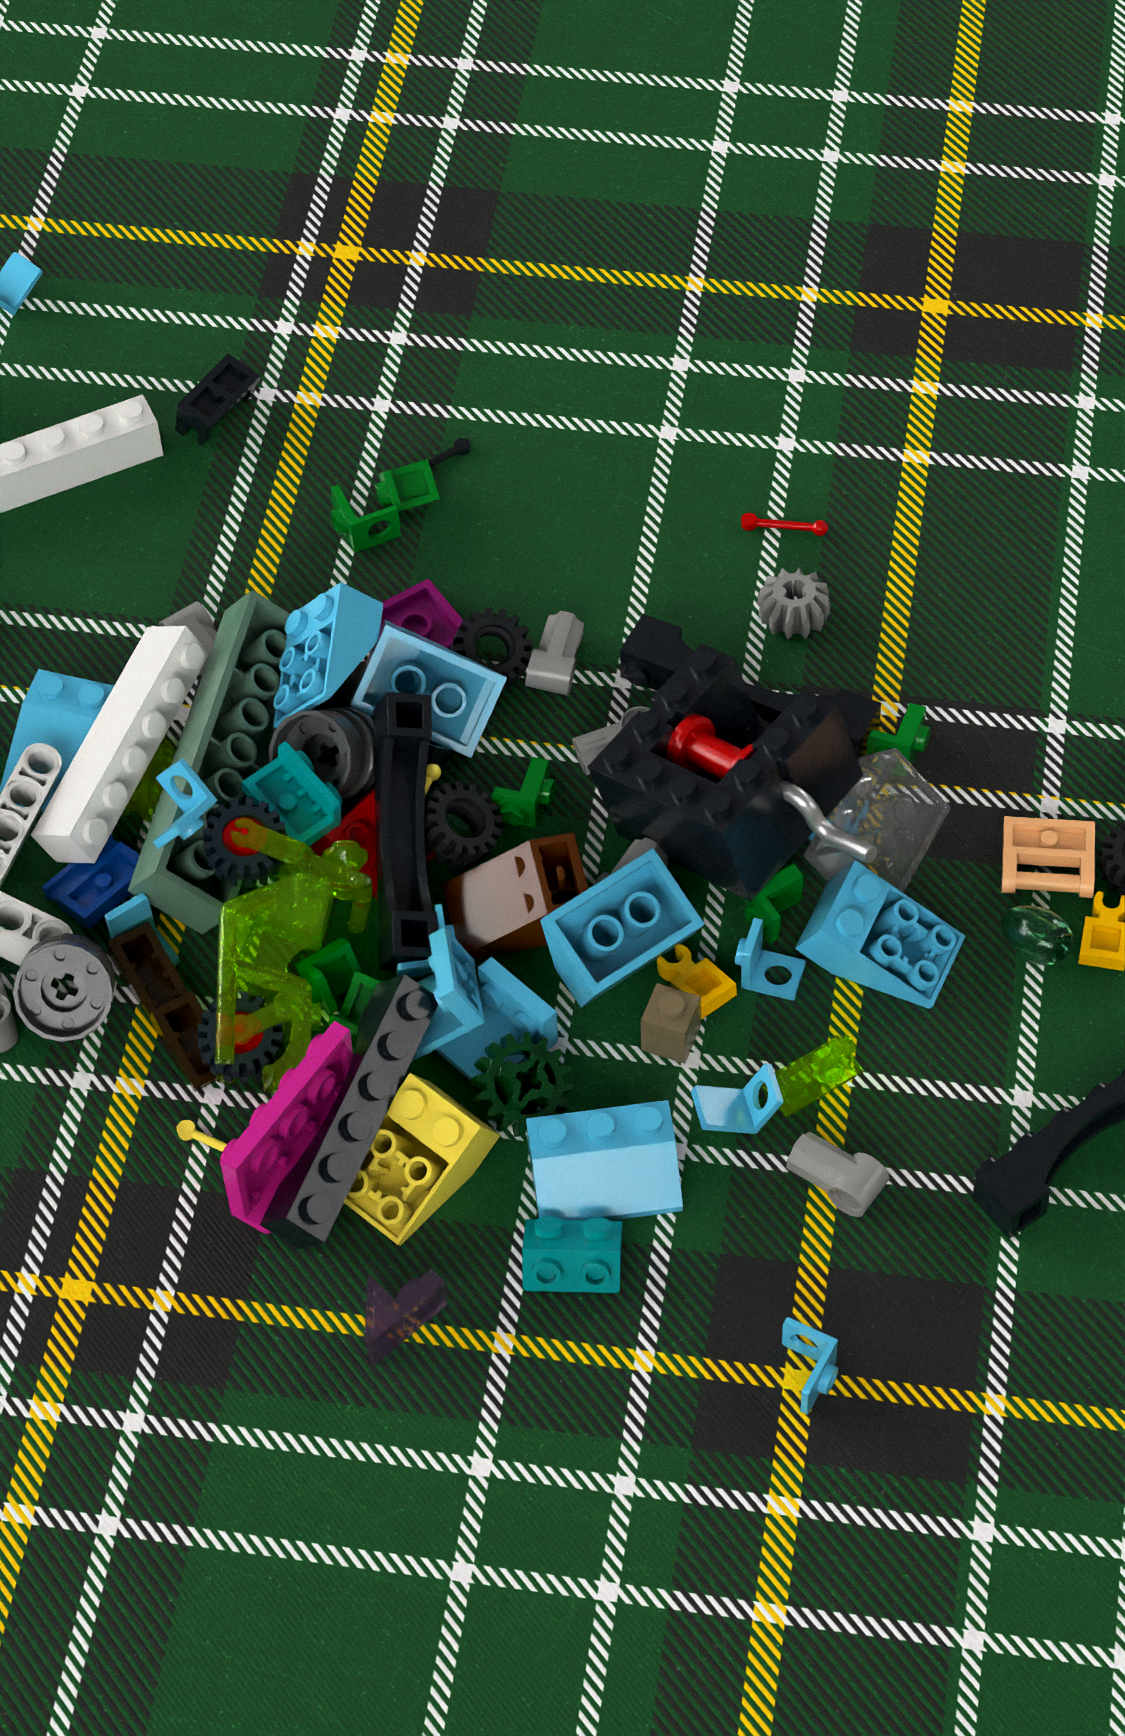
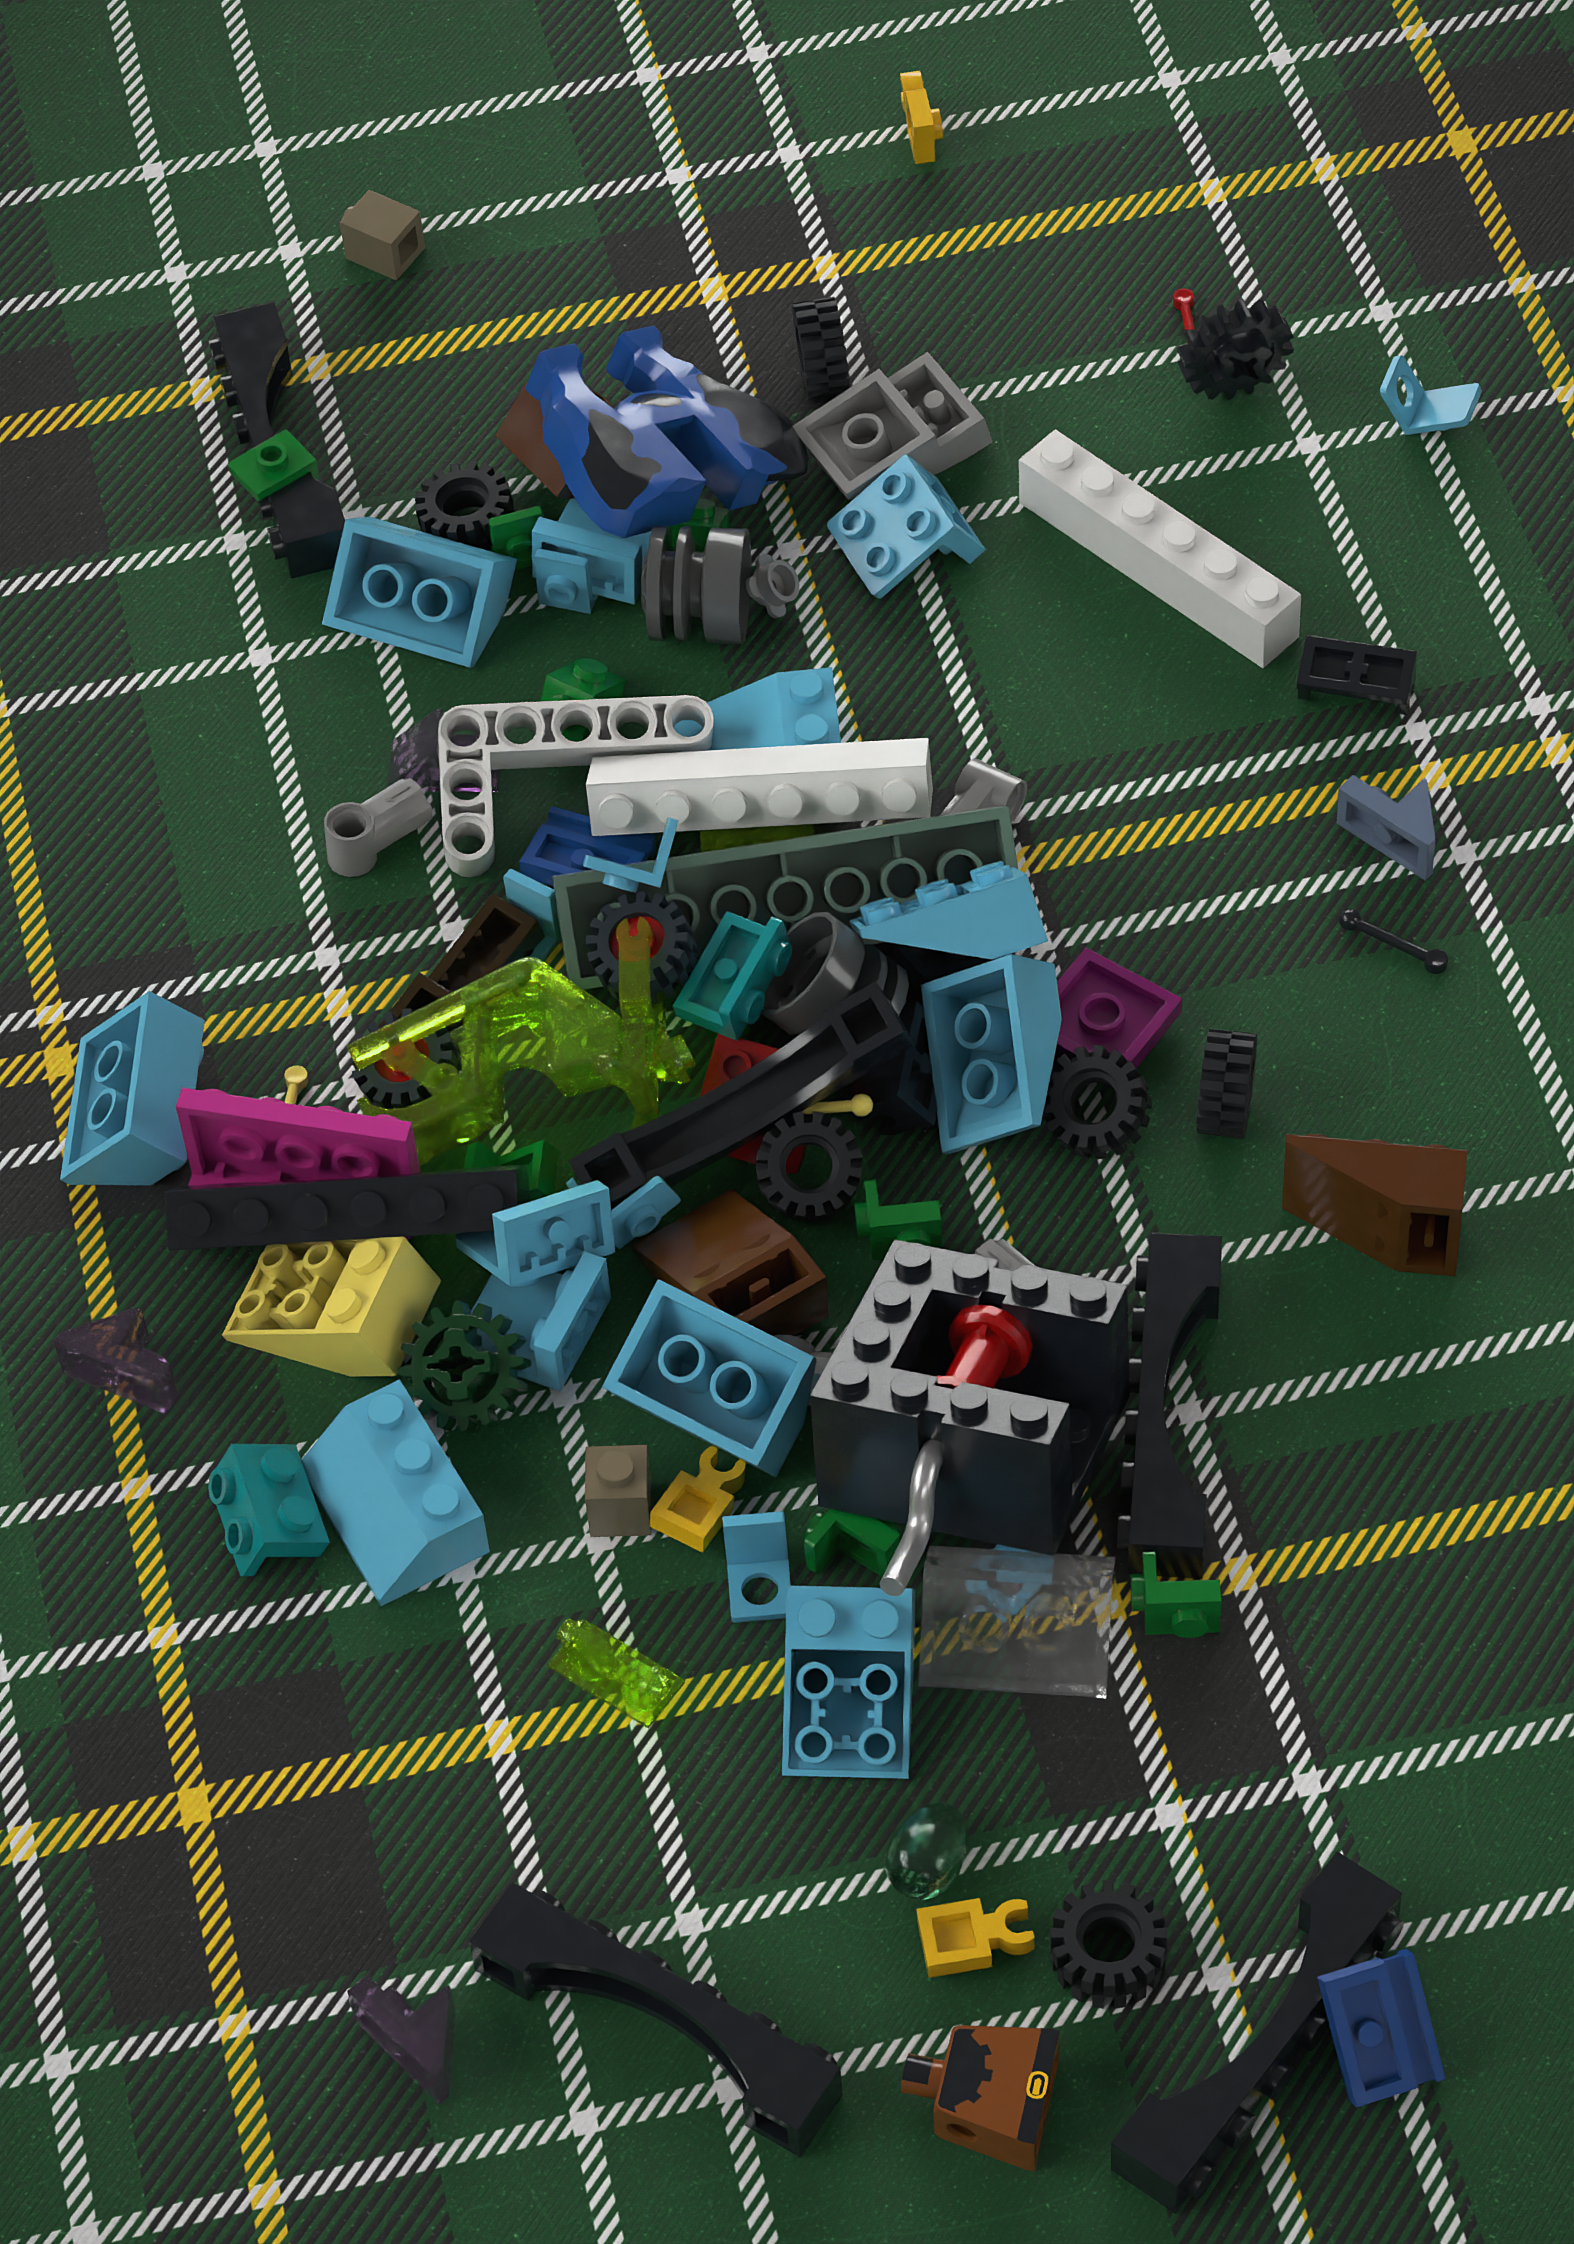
camera: 70 degrees right, 0 degrees up
(67, 1014) = (395, 871): wheel -> none
(152, 1238) = (127, 1095): none -> medium azure slope
(329, 972) = (542, 1114): green bracket -> none
(354, 421) = (1396, 829): none -> sand blue slope
(357, 529) = (1232, 886): green bracket -> none
(407, 486) = (1316, 920): green bracket -> none
(518, 572) = (1226, 1083): none -> black tyre
(554, 661) = (1114, 1179): light grey piece -> none
(658, 520) = (1380, 1198): none -> reddish brown slope
(738, 1108) = (526, 1595): medium azure bracket -> none
(750, 521) = (1476, 1317): red hinge -> none
(794, 603) = (1344, 1405): light grey gear -> none
(825, 1353) = (199, 1815): medium azure bracket -> none
(847, 1179) = (477, 1755): light grey piece -> none
(1048, 844) = (1086, 1823): light nougat plate -> none
(1068, 1280) = (415, 2040): none -> clear purple slope

